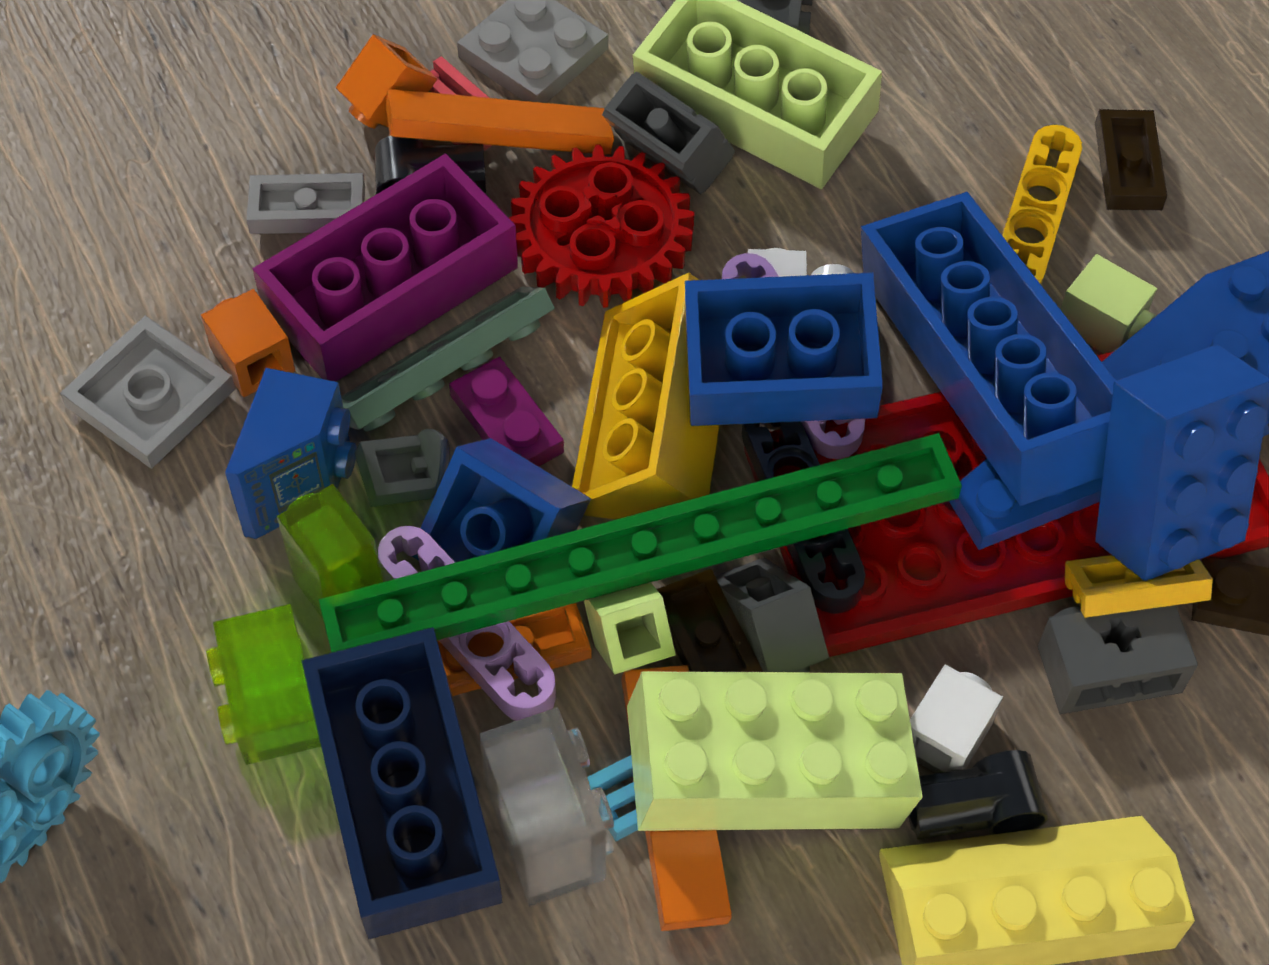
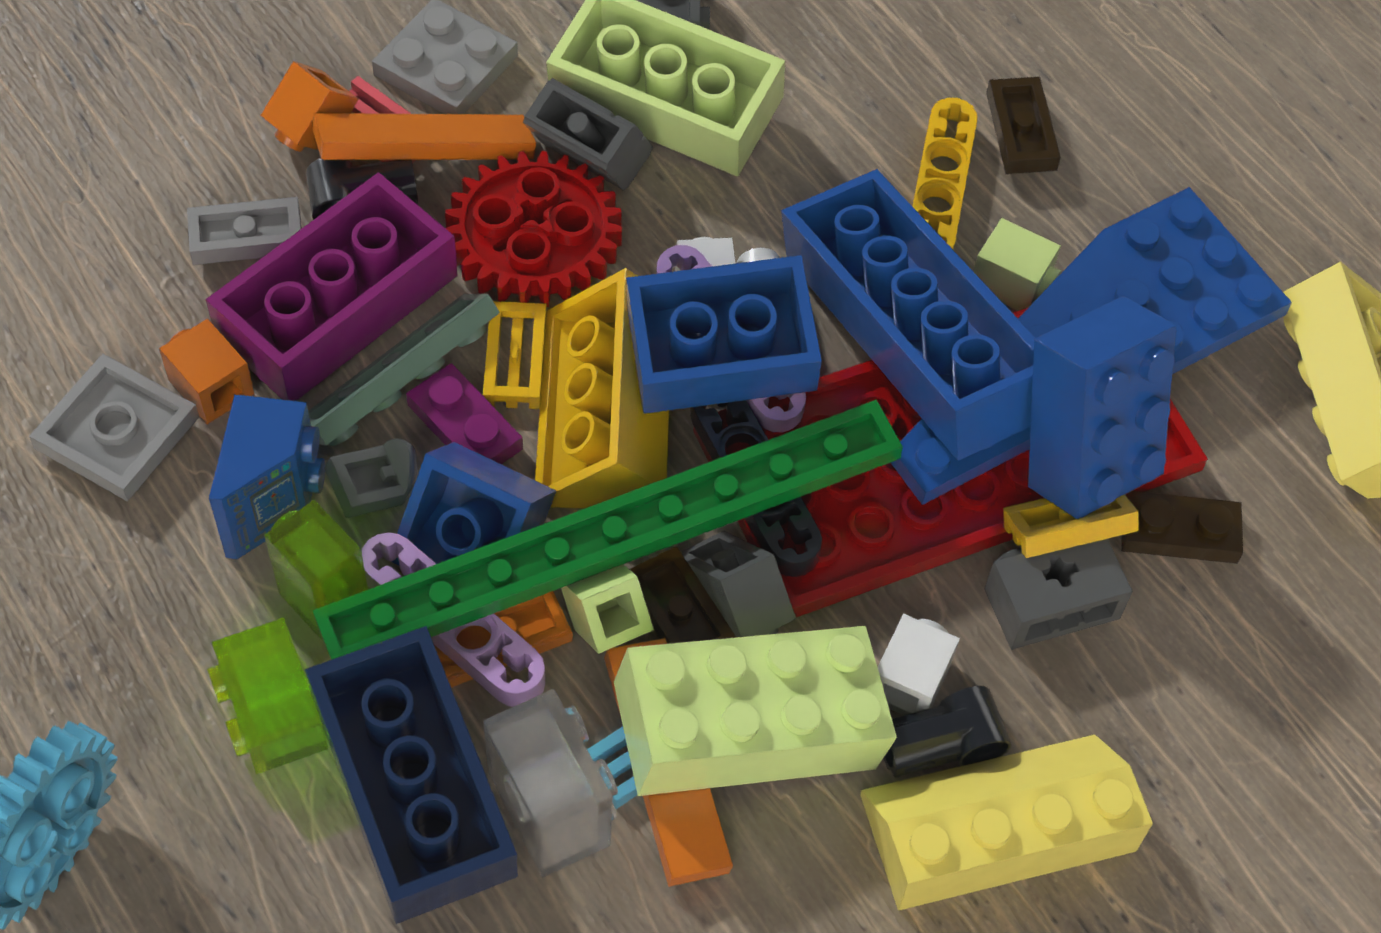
camera: 10 degrees left, 0 degrees up
(560, 392) = (512, 392): none -> yellow tile

